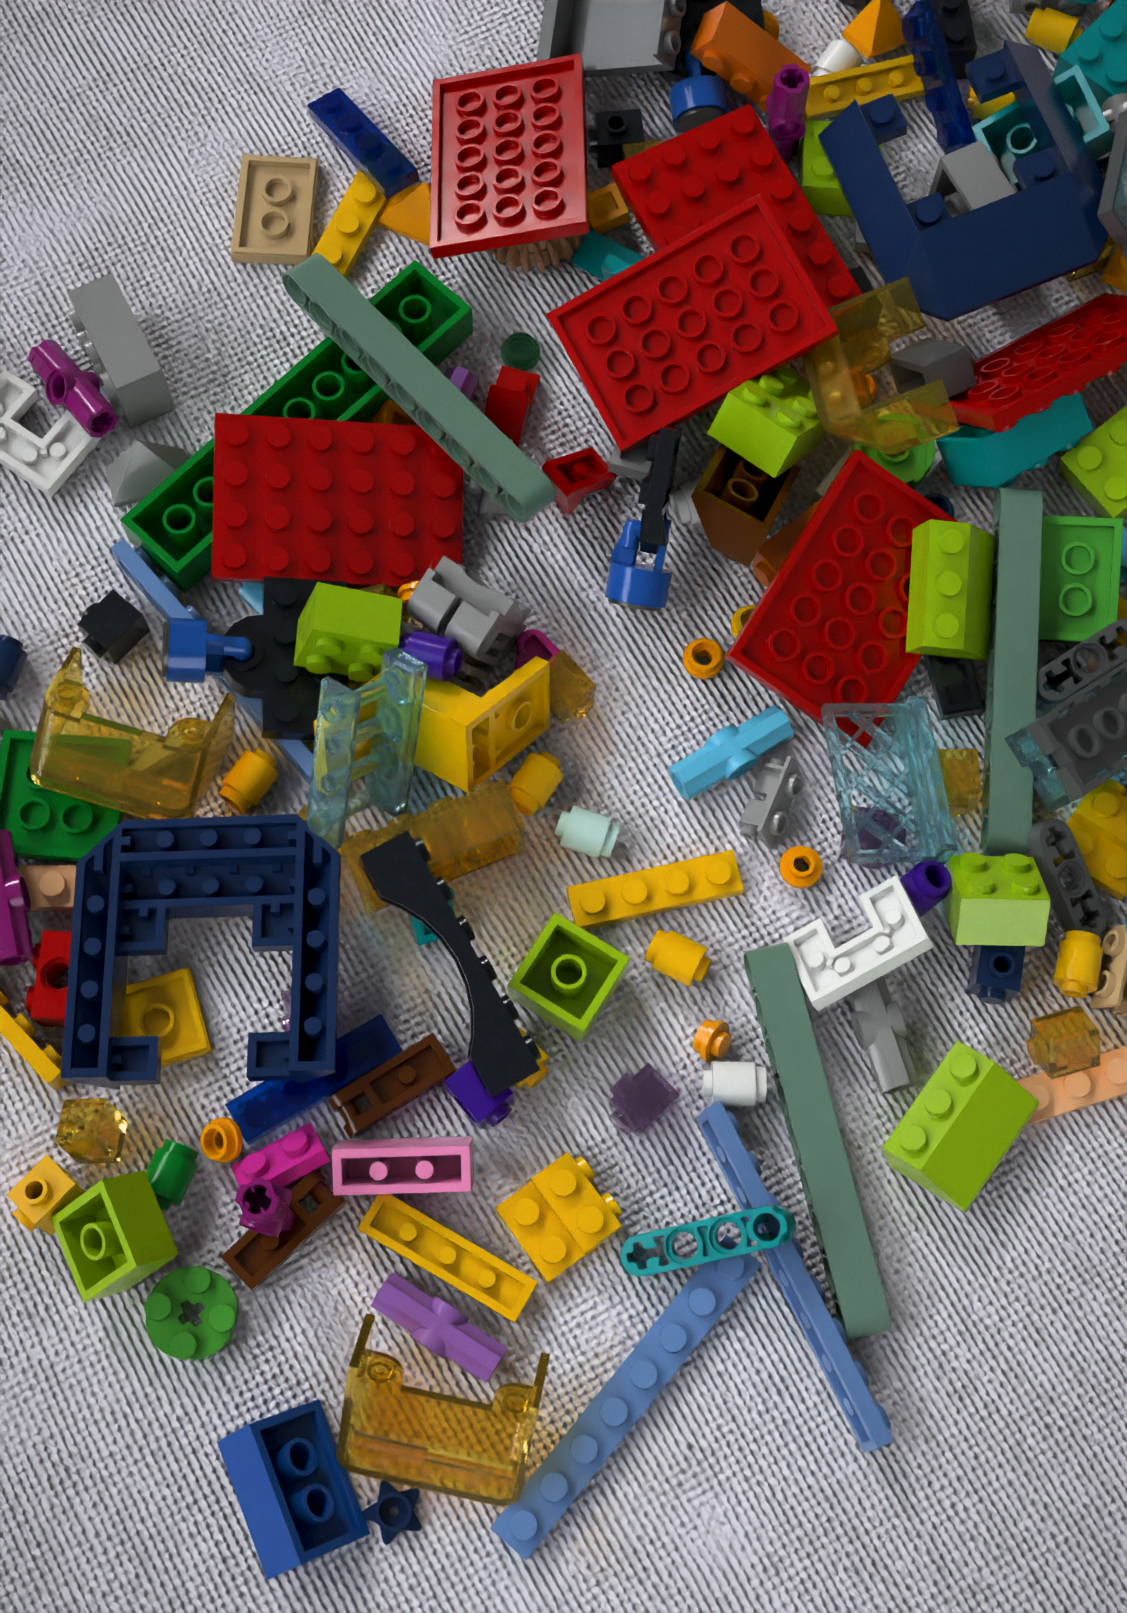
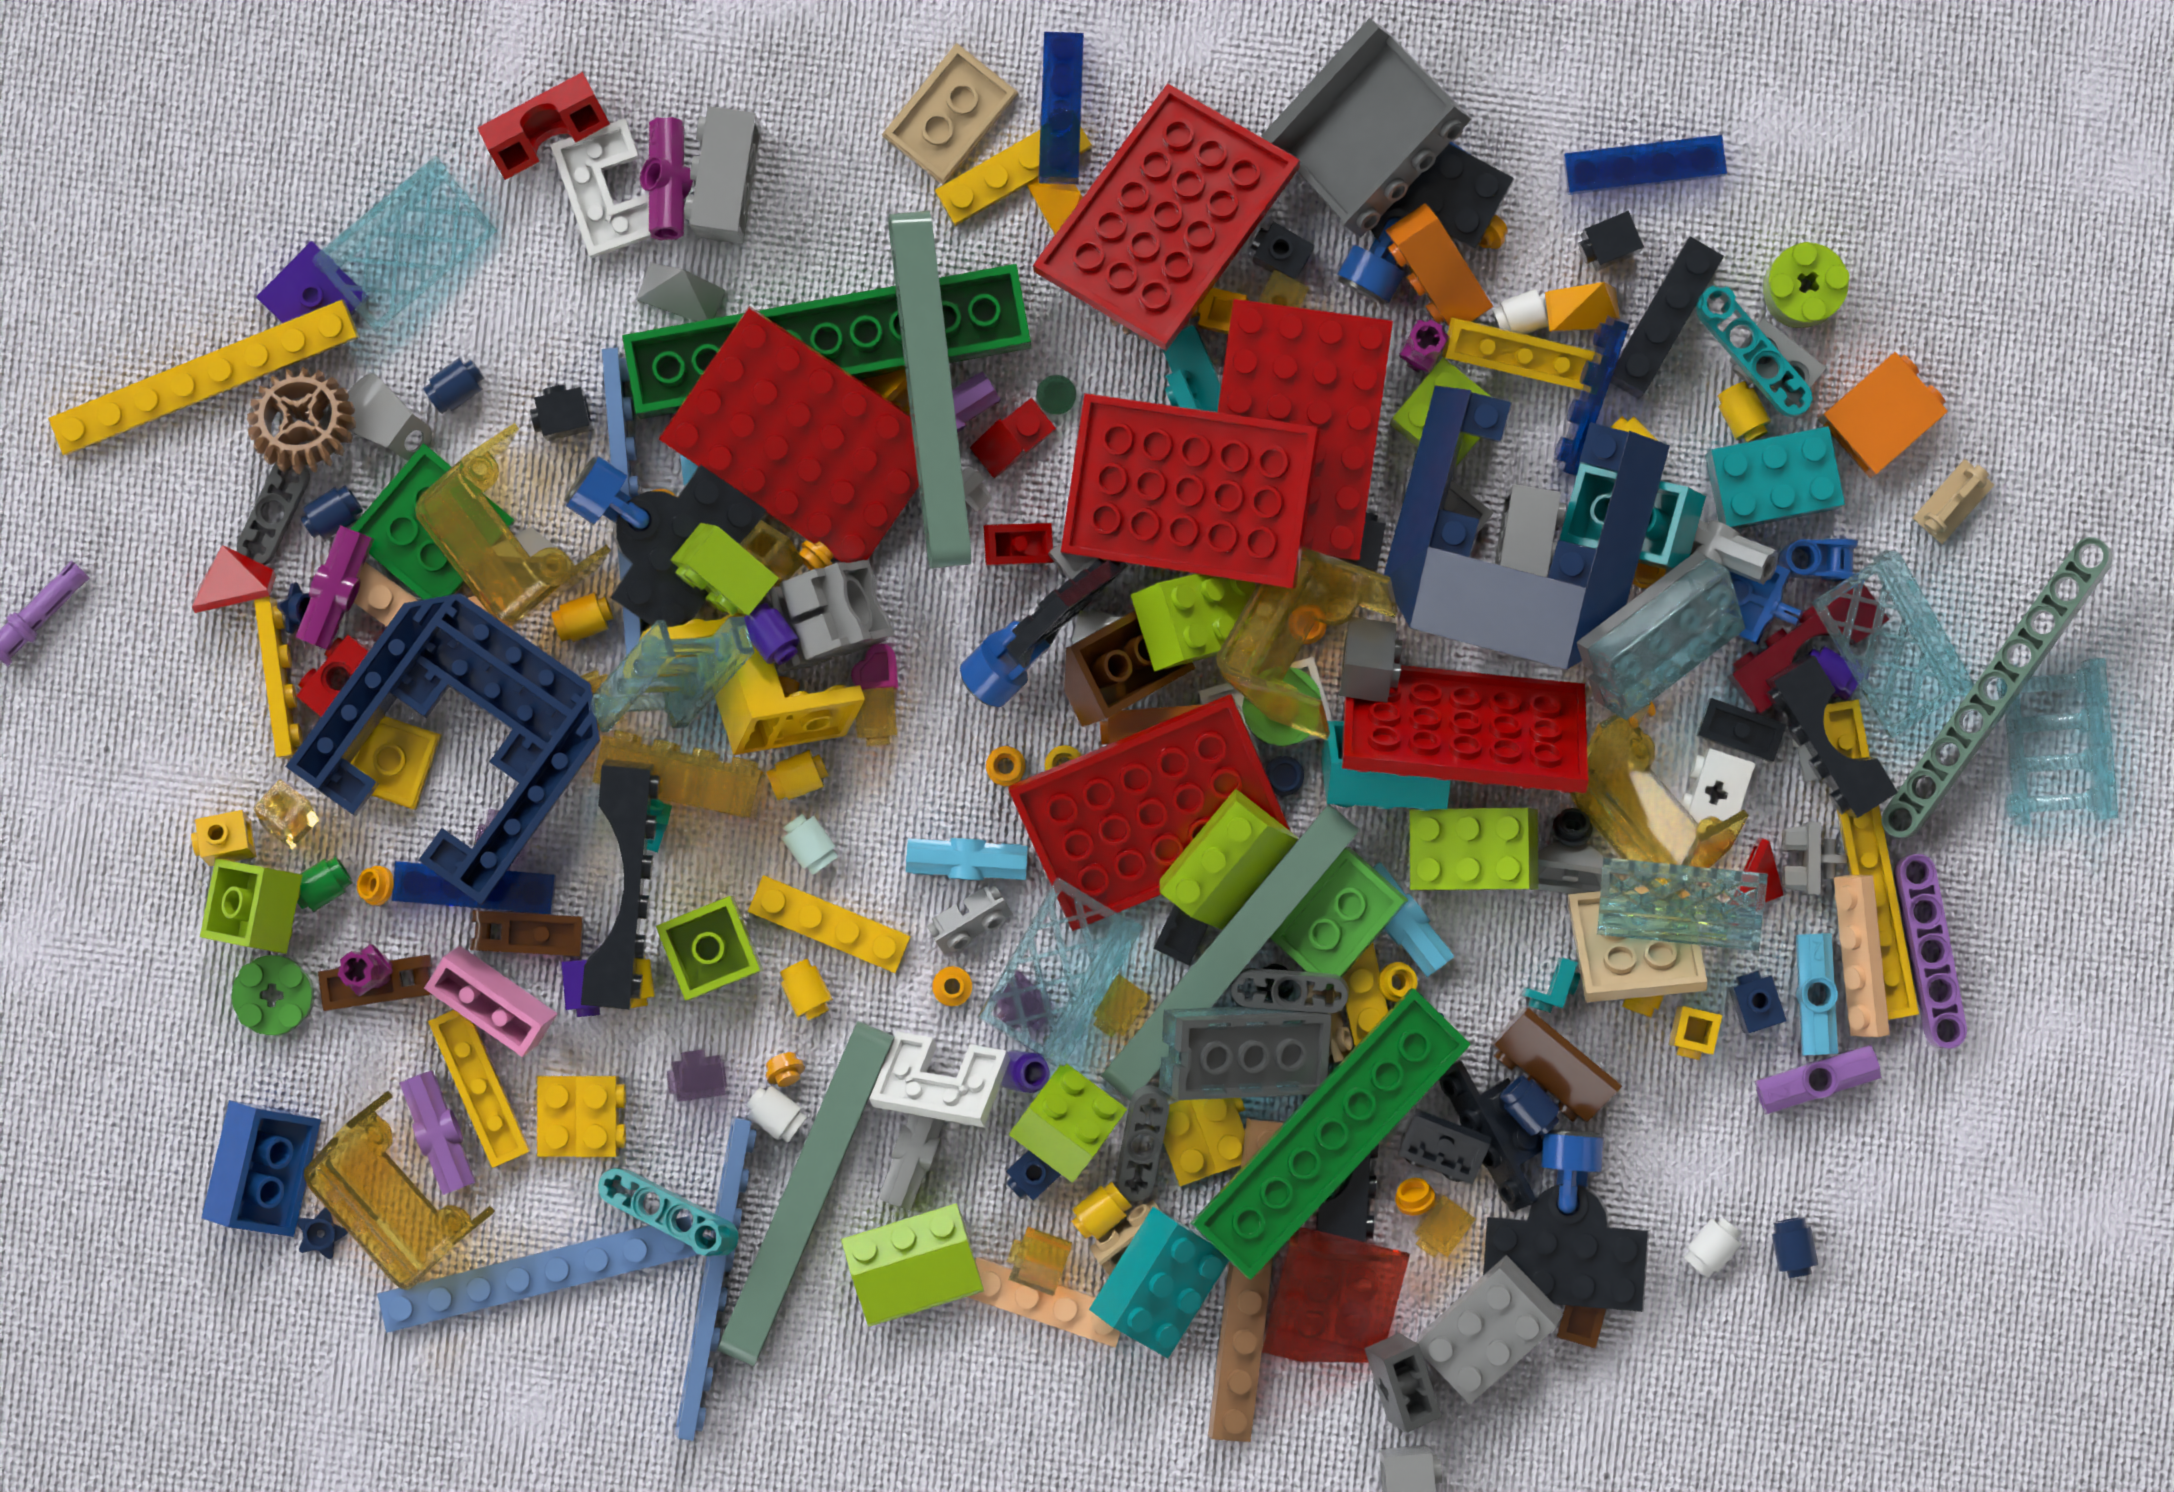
camera: 40 degrees right, 15 degrees up
(283, 1159) = (406, 932): dark pink plate -> none

